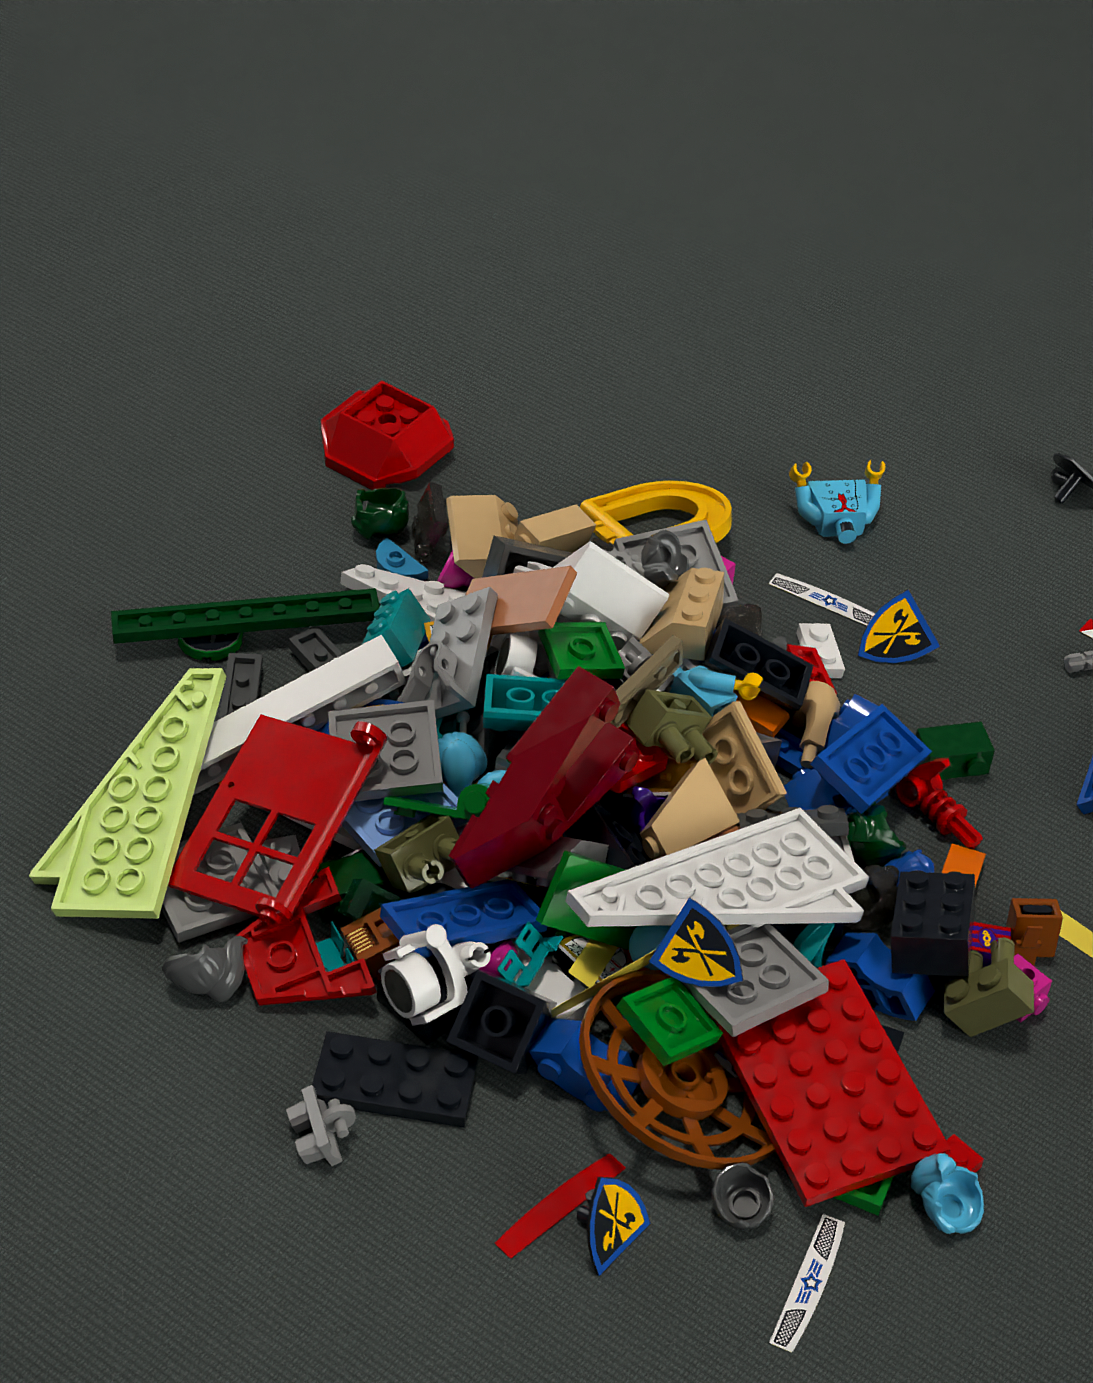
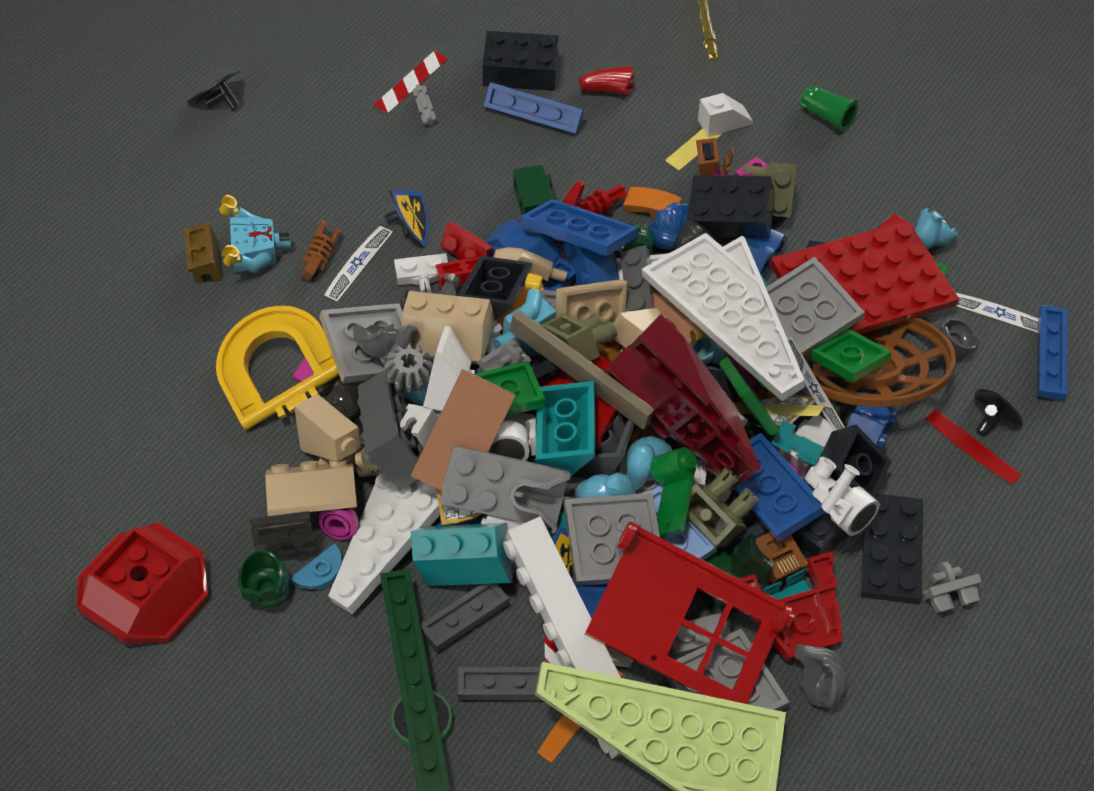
camera: 90 degrees left, 10 degrees up
(698, 949) = (809, 323): shield -> none
(728, 1328) = (1052, 352): none -> blue plate
(826, 464) = (202, 252): none -> pearl gold hinge
(836, 561) = (319, 250): none -> dark orange hinge
(861, 674) = (463, 243): none -> red plate

